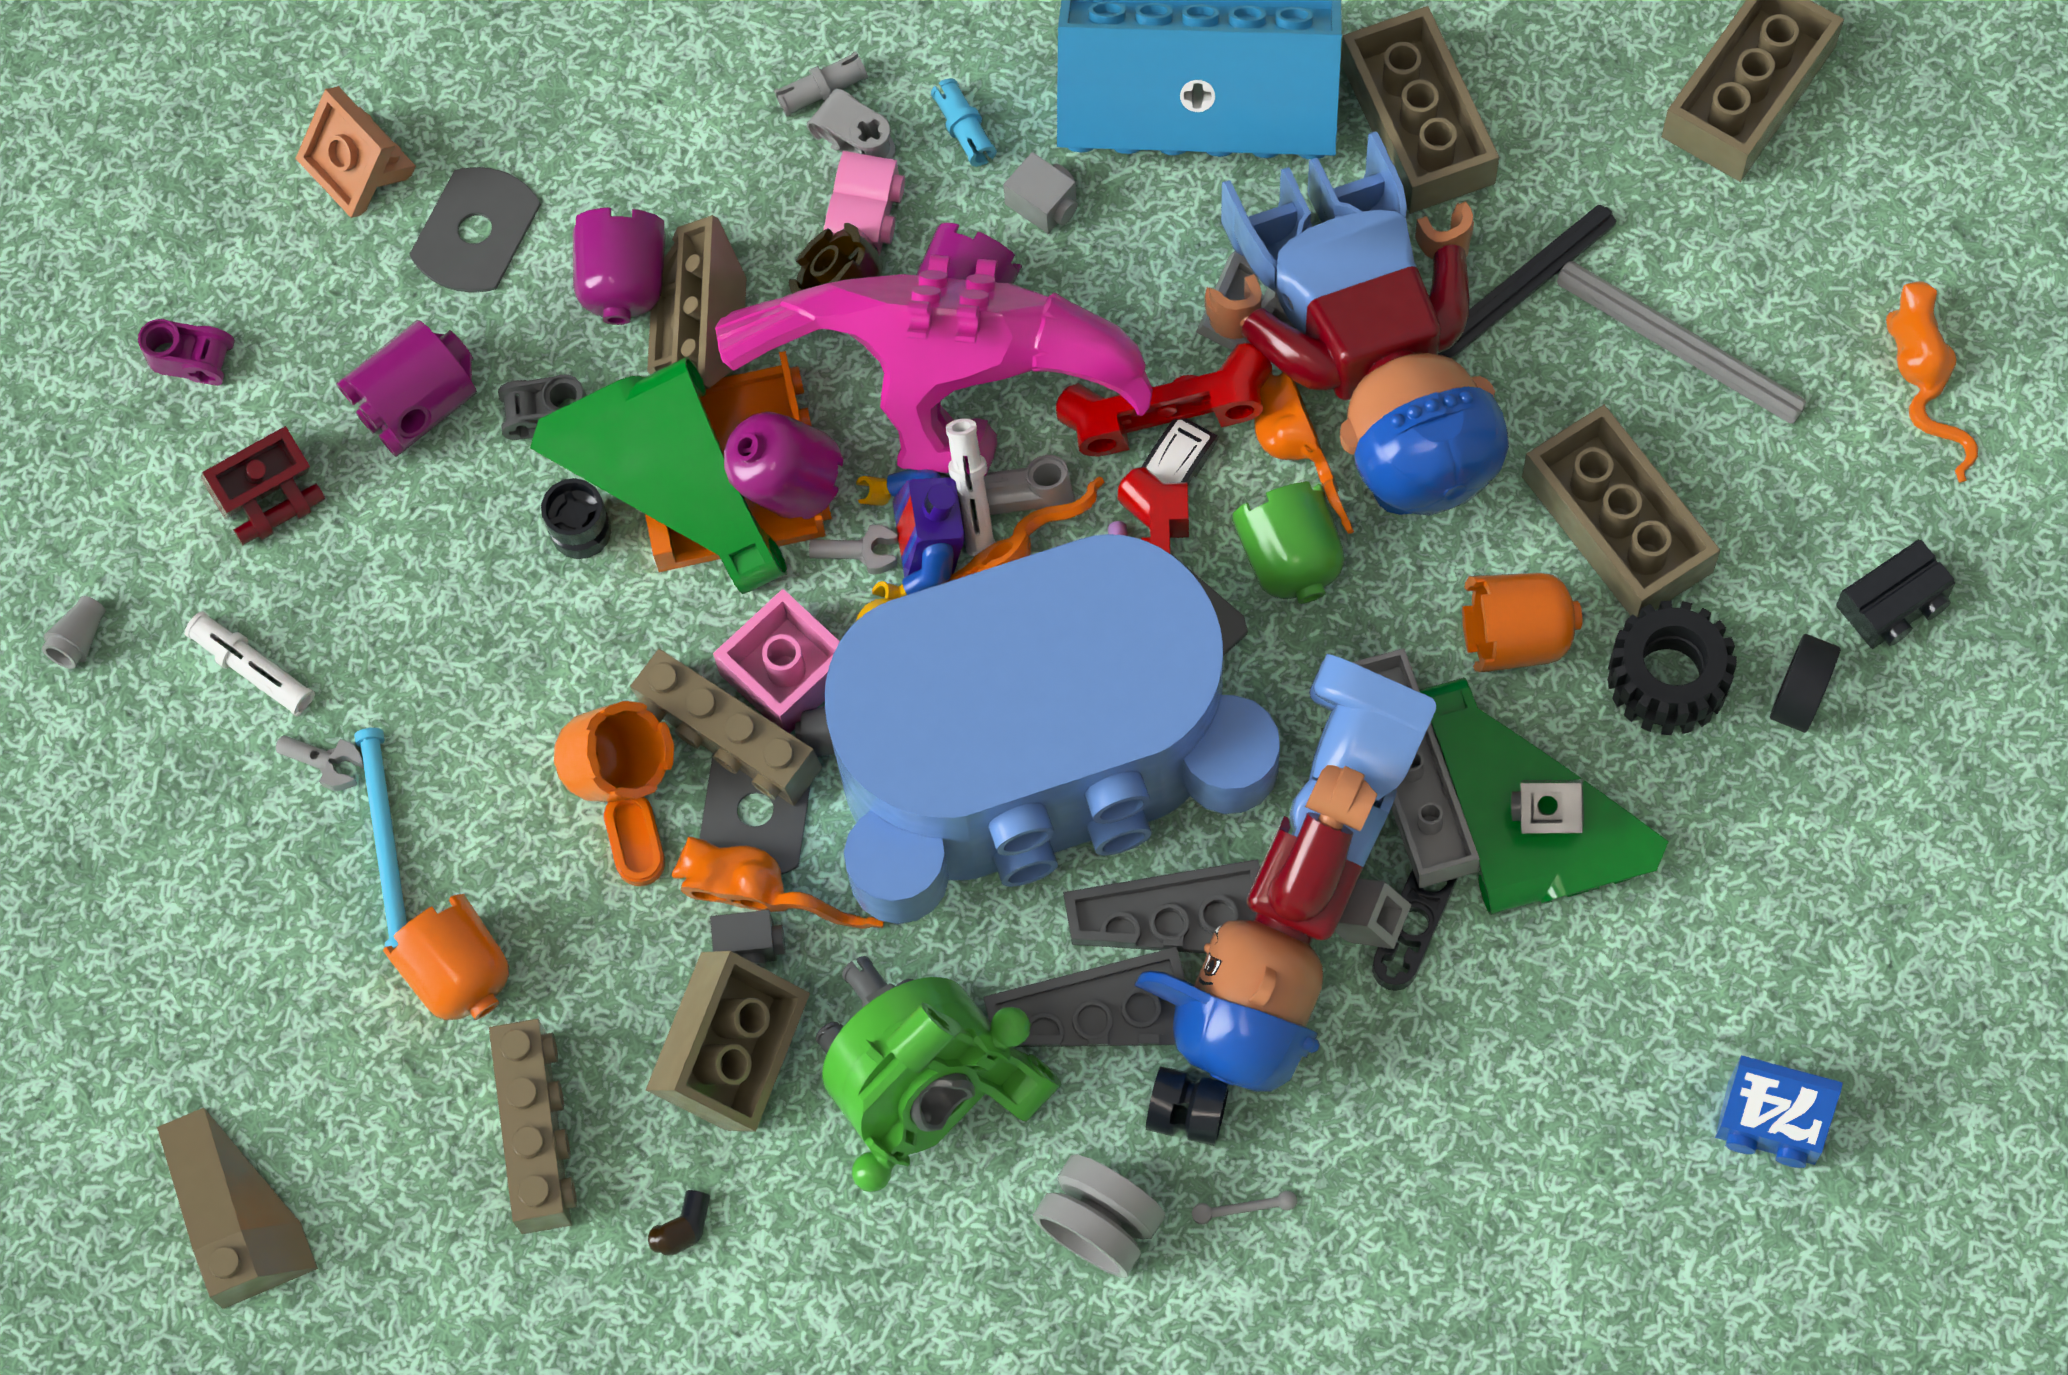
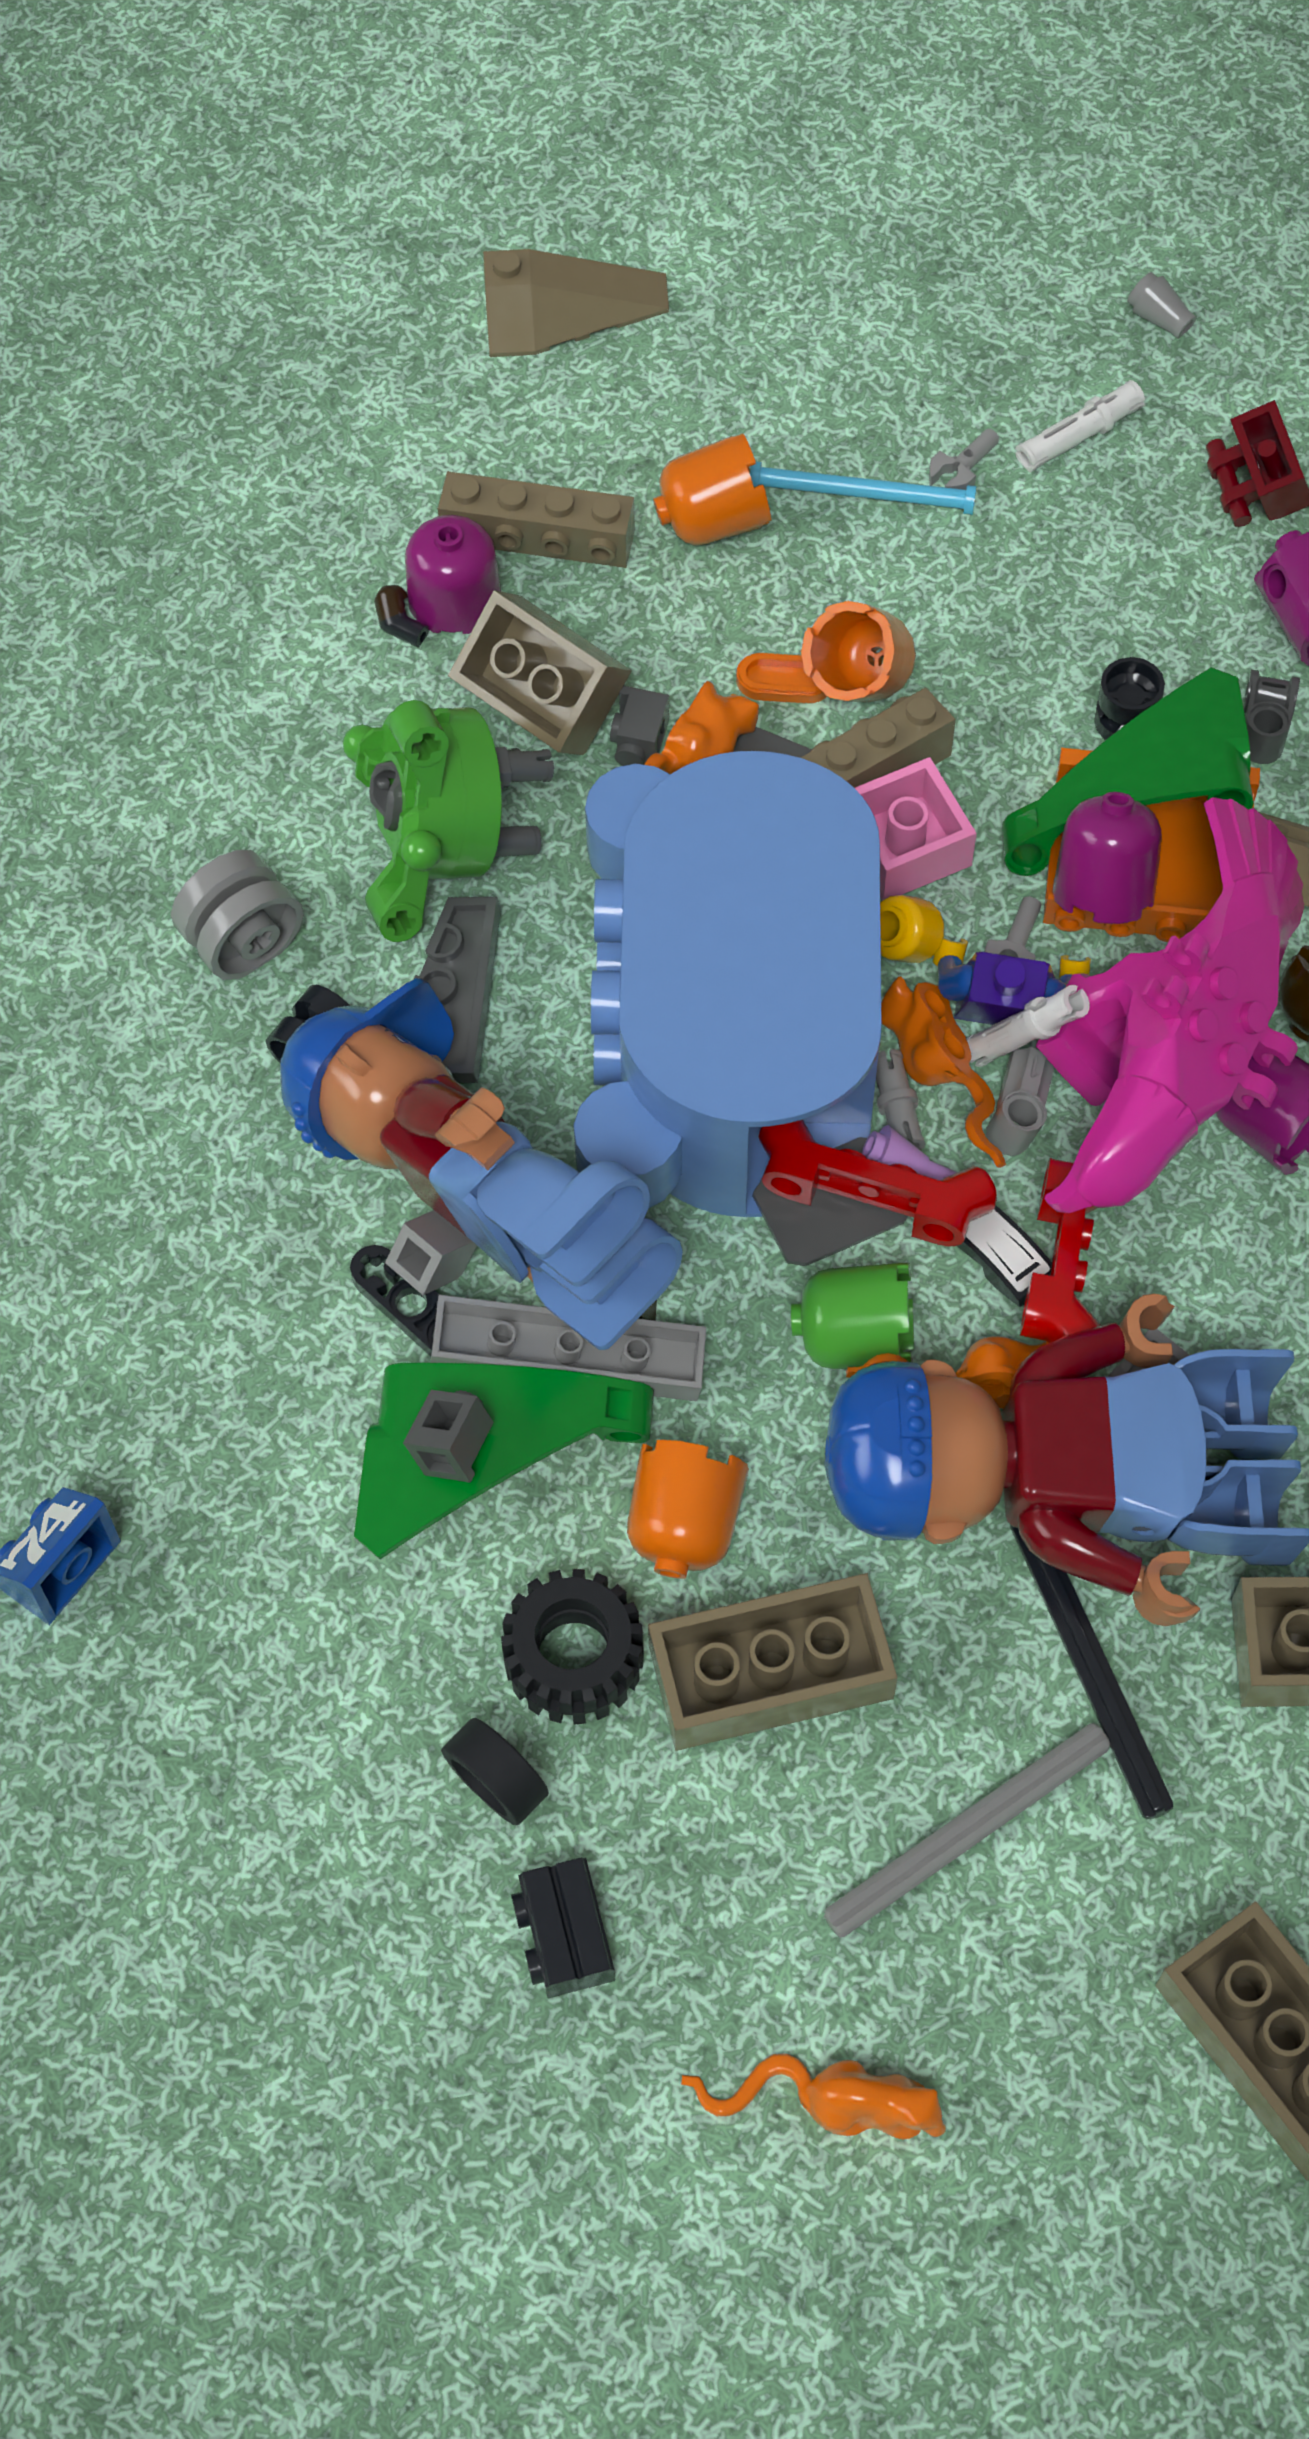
camera: 105 degrees right, 5 degrees down
(643, 1192) = (450, 573): none -> magenta cylinder
(1162, 909) = (529, 1062): dark grey wing -> none
(1203, 1213) = (214, 1026): light grey hinge -> none

